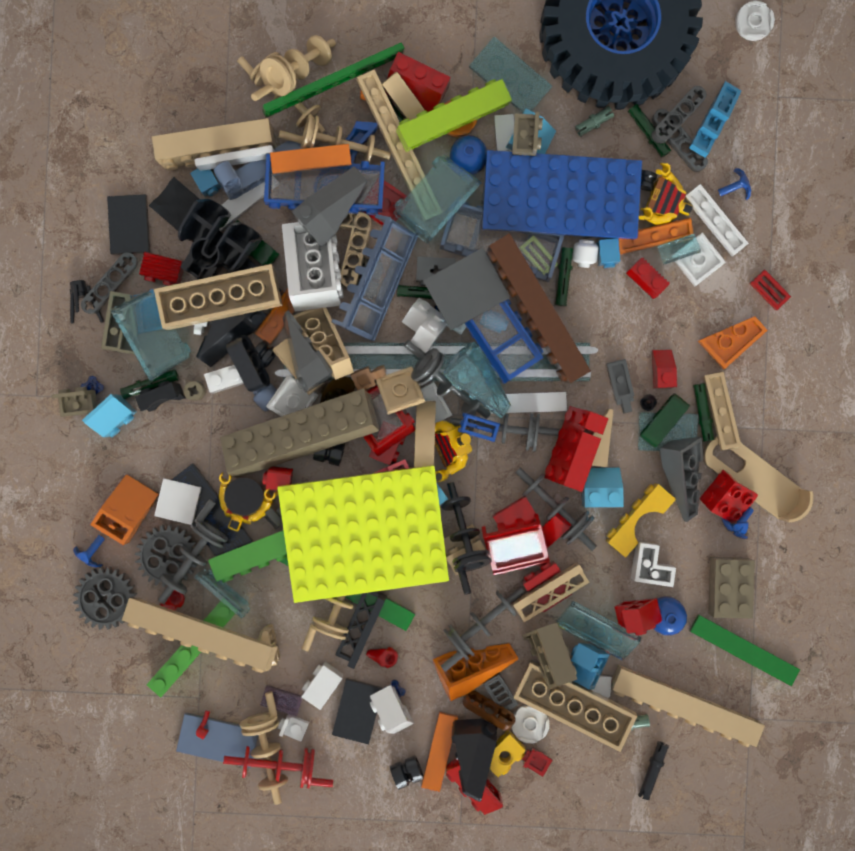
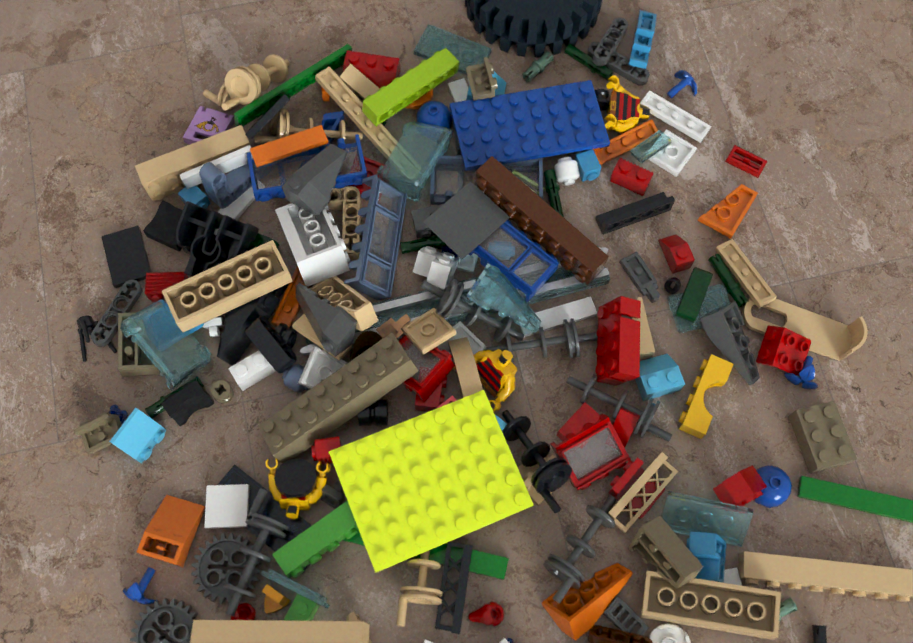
camera: 20 degrees left, 20 degrees down
(202, 594) = (274, 600): none -> light orange tile
(236, 98) = (207, 123): none -> lavender container
(298, 113) = (268, 115): none -> black tile
(464, 423) = (501, 342): blue tile -> none
(638, 315) = (634, 212): none -> black fence
(647, 570) = (730, 440): white brick -> none

